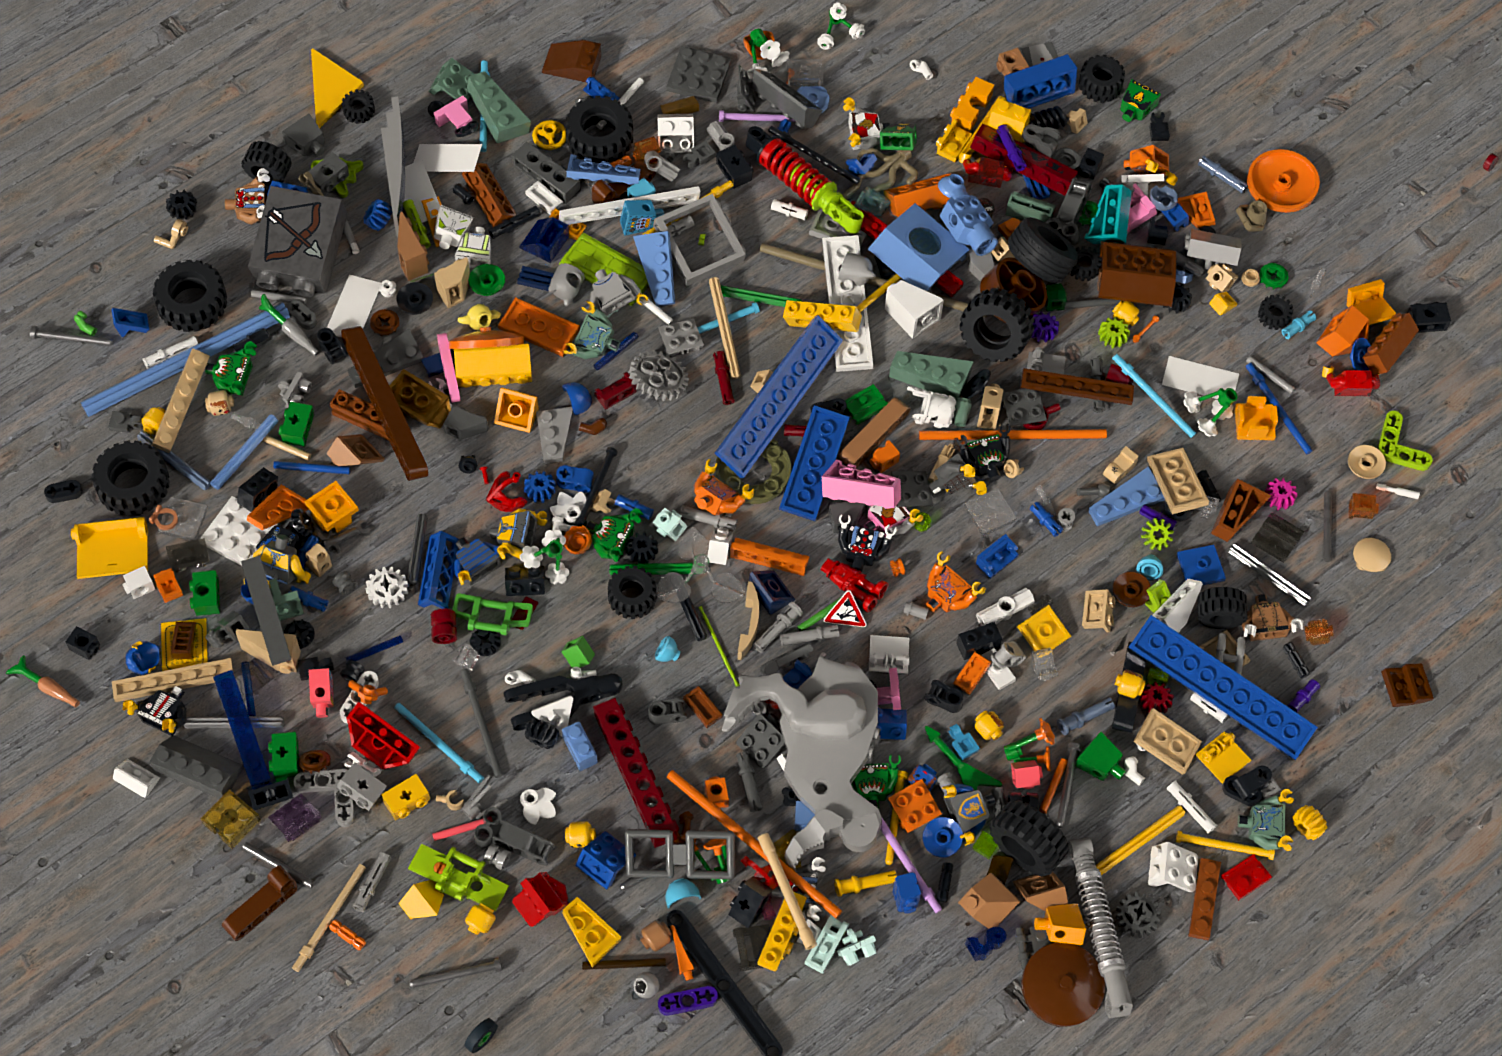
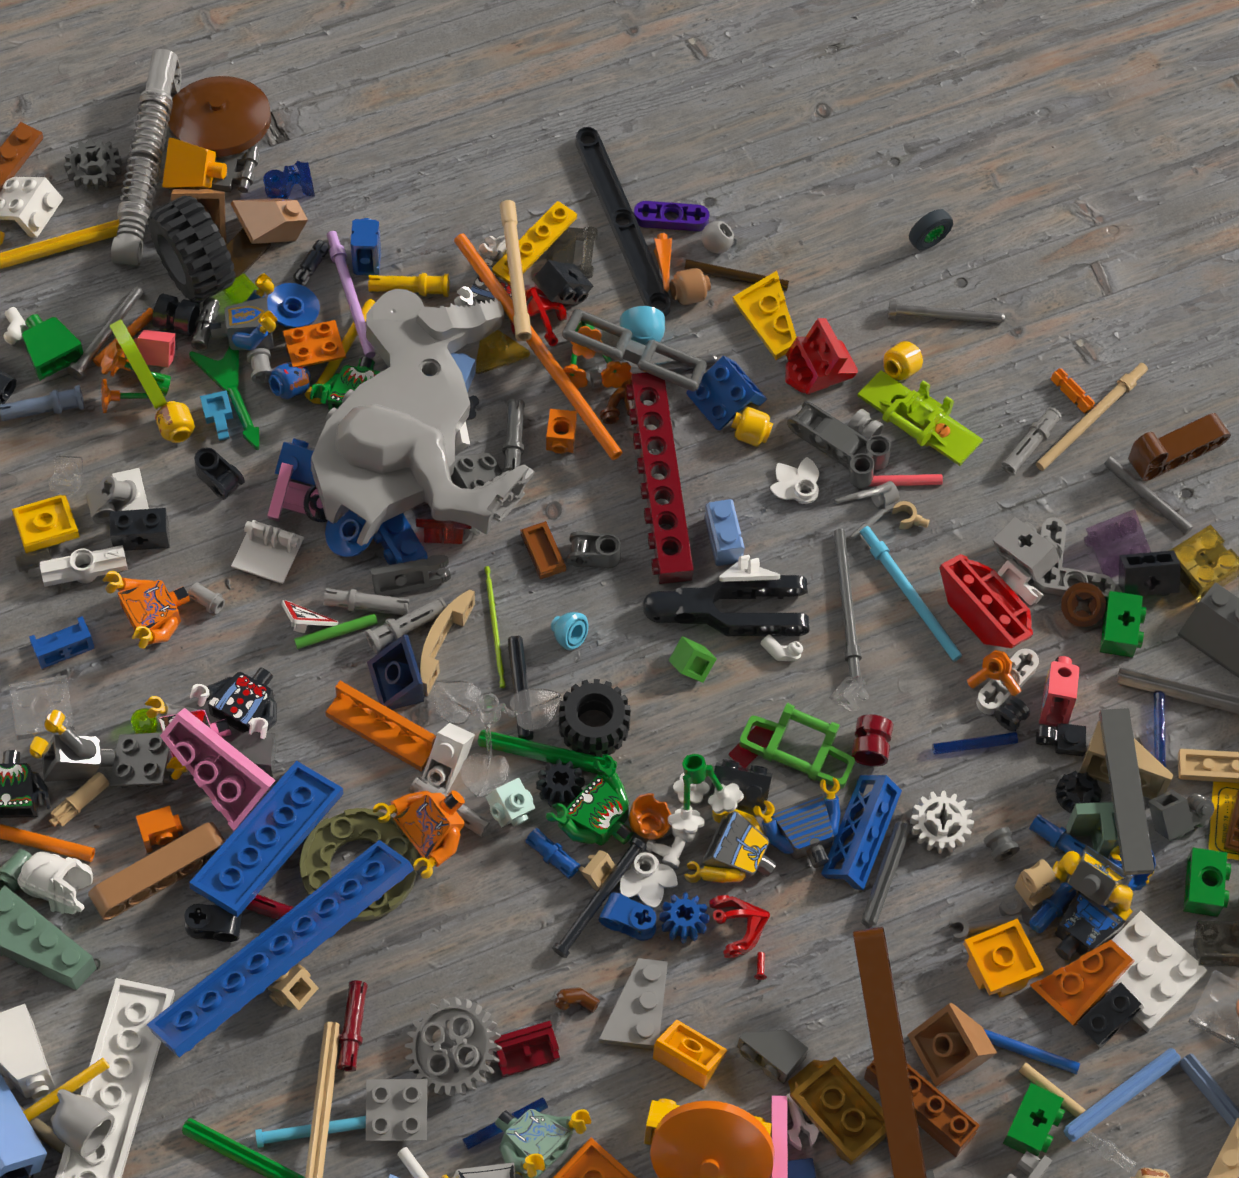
camera: 165 degrees left, 0 degrees up
(242, 728) = (1177, 667): clear blue plate -> none
(302, 523) = (1052, 940): black gear -> none
(410, 788) = (968, 528): yellow brick -> none
(422, 900) = (971, 399): yellow slope -> none
(468, 464) = (783, 982): black plate -> none
(486, 649) = (818, 701): black gear -> none
(542, 733) = (772, 553): black gear -> none
(577, 674) = (695, 630): white arm -> none
(579, 397) = (587, 1057): blue helmet -> none
(826, 944) = (484, 225): light aqua plate -> none
(836, 316) = (163, 1069): yellow brick -> none
(848, 578) = (282, 661): red piece -> none
(865, 404) = (152, 922): green plate -> none
(866, 945) = (448, 216): light aqua hips -> none
(898, 567) = (207, 662): orange bush -> none
(972, 673) = (168, 492): orange plate -> none
(1033, 735) = (138, 364): none -> lime beam

